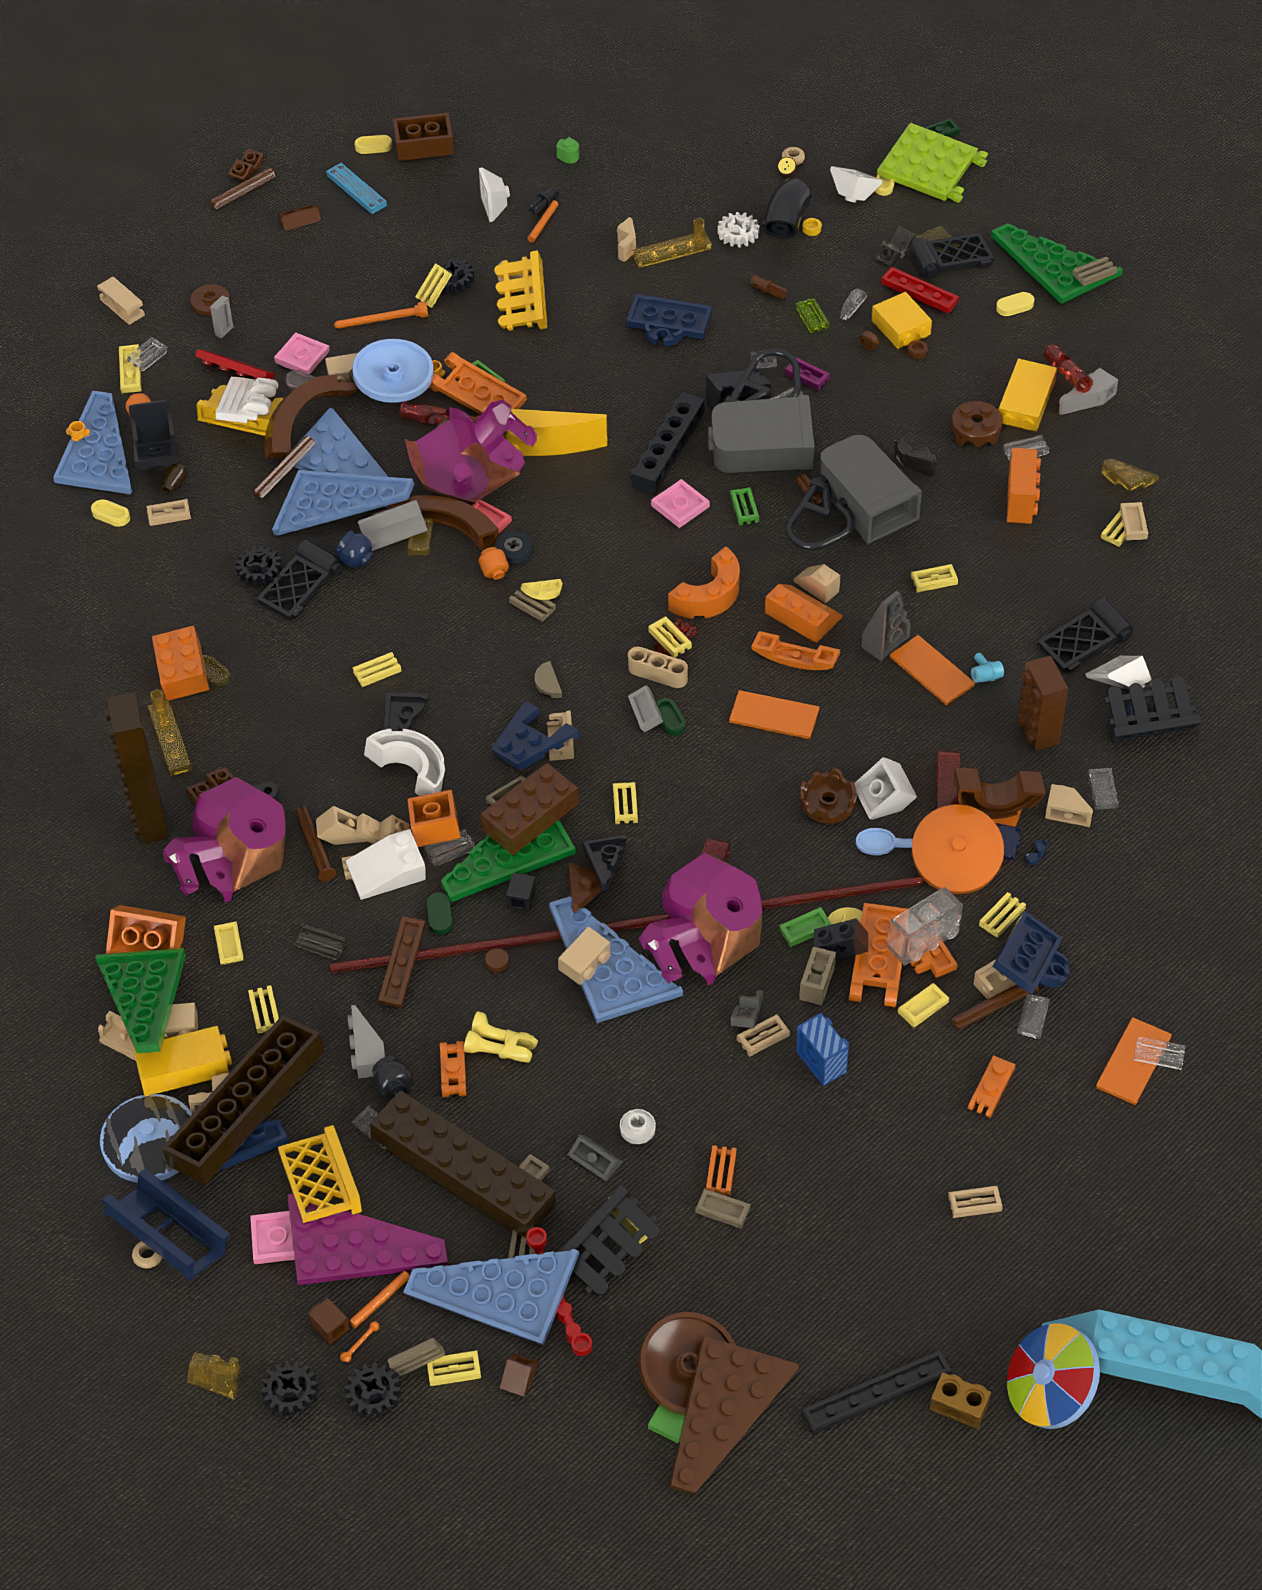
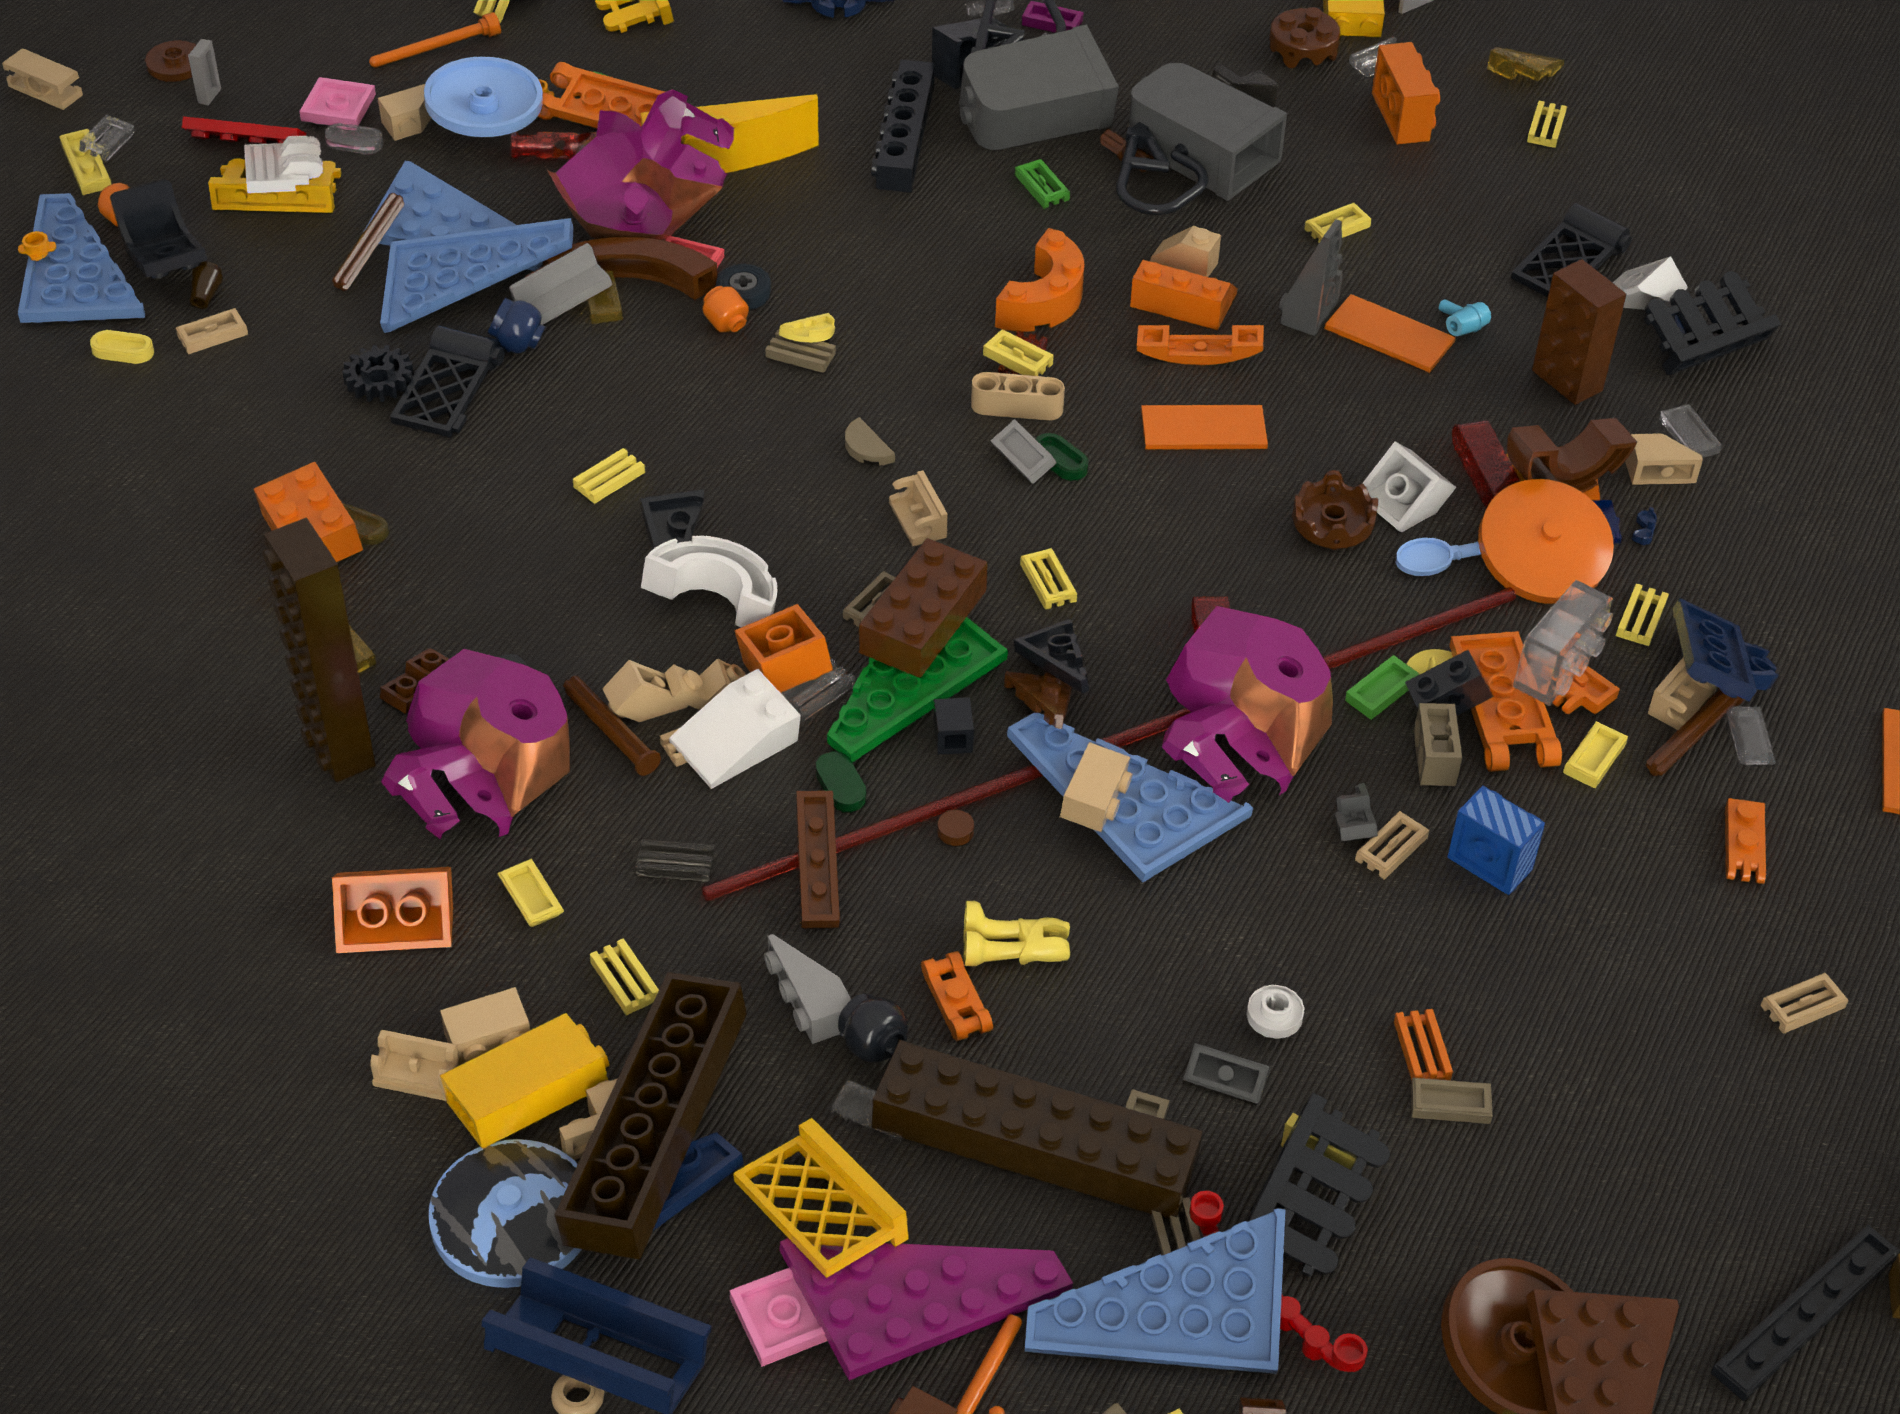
camera: 20 degrees left, 5 degrees down
(143, 991) = (427, 989): green wing -> none
(279, 428) = (345, 182): reddish brown arch -> none
(523, 745) = (877, 530): dark blue wing -> none
(680, 503) = (954, 193): bright pink plate -> none
(1133, 521) = (1564, 111): tan tile -> none

